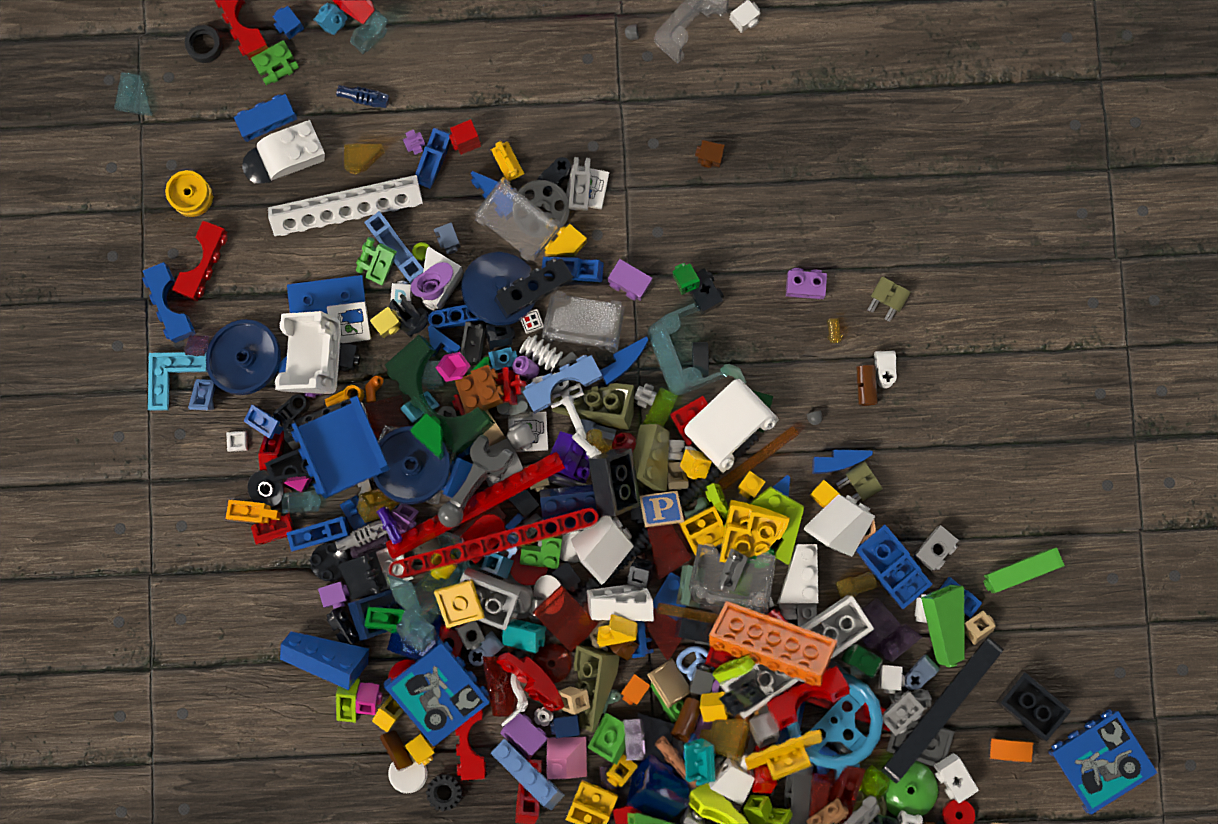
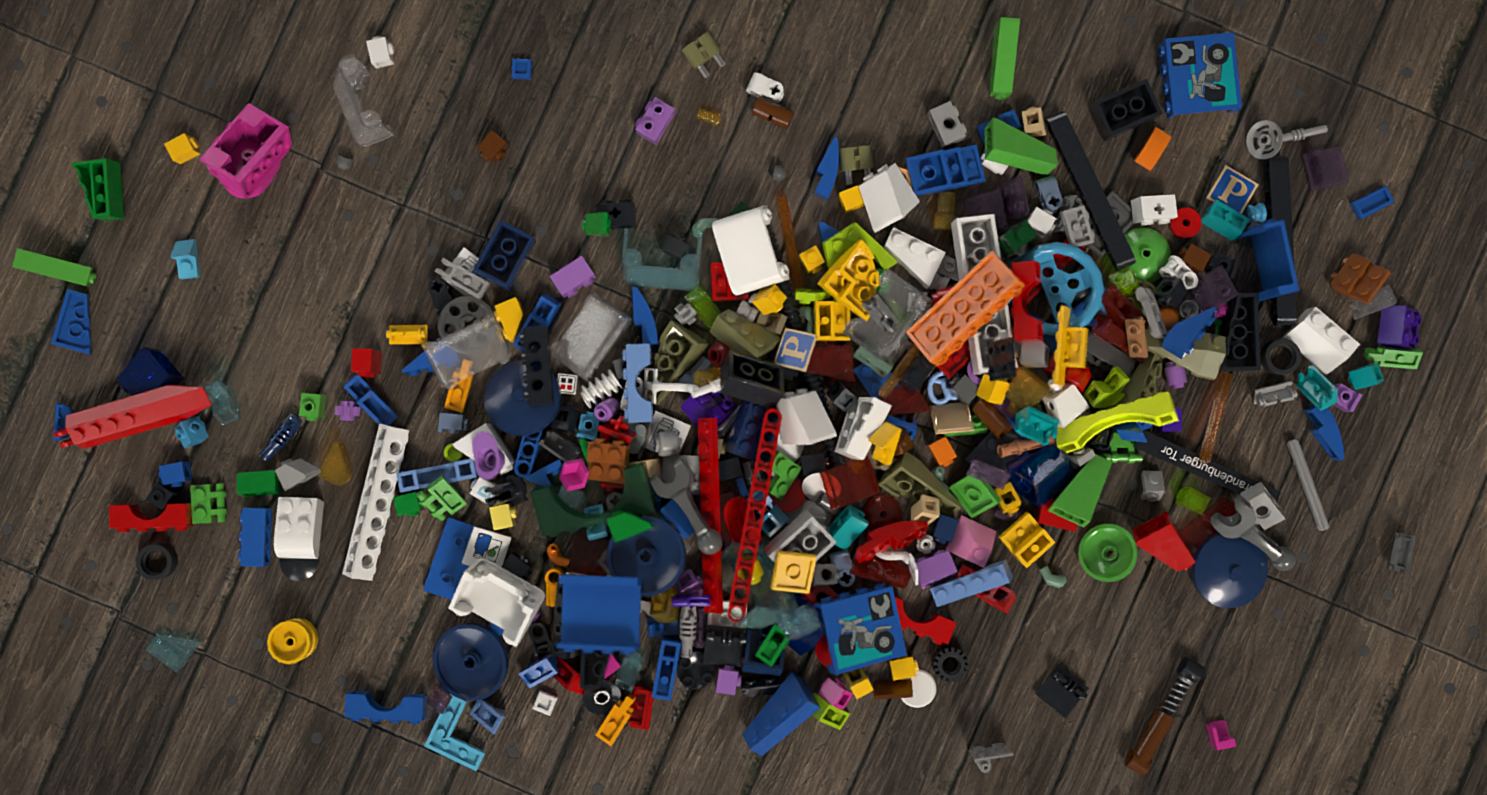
camera: 65 degrees left, 5 degrees up
(192, 283) = (378, 675): red arch -> none
(263, 21) = (163, 495): none -> black brick
(313, 97) = (258, 483): none -> green hinge
(337, 124) = (295, 473): none -> light grey slope
(356, 234) = (408, 504): none -> green brick
(403, 110) = (312, 406): none -> bright green brick
(474, 231) = (458, 396): none -> light orange hinge
(618, 211) = (504, 255): none -> dark blue brick
(733, 668) = (970, 354): lime beam -> none
(793, 144) = (521, 69): none -> blue tile

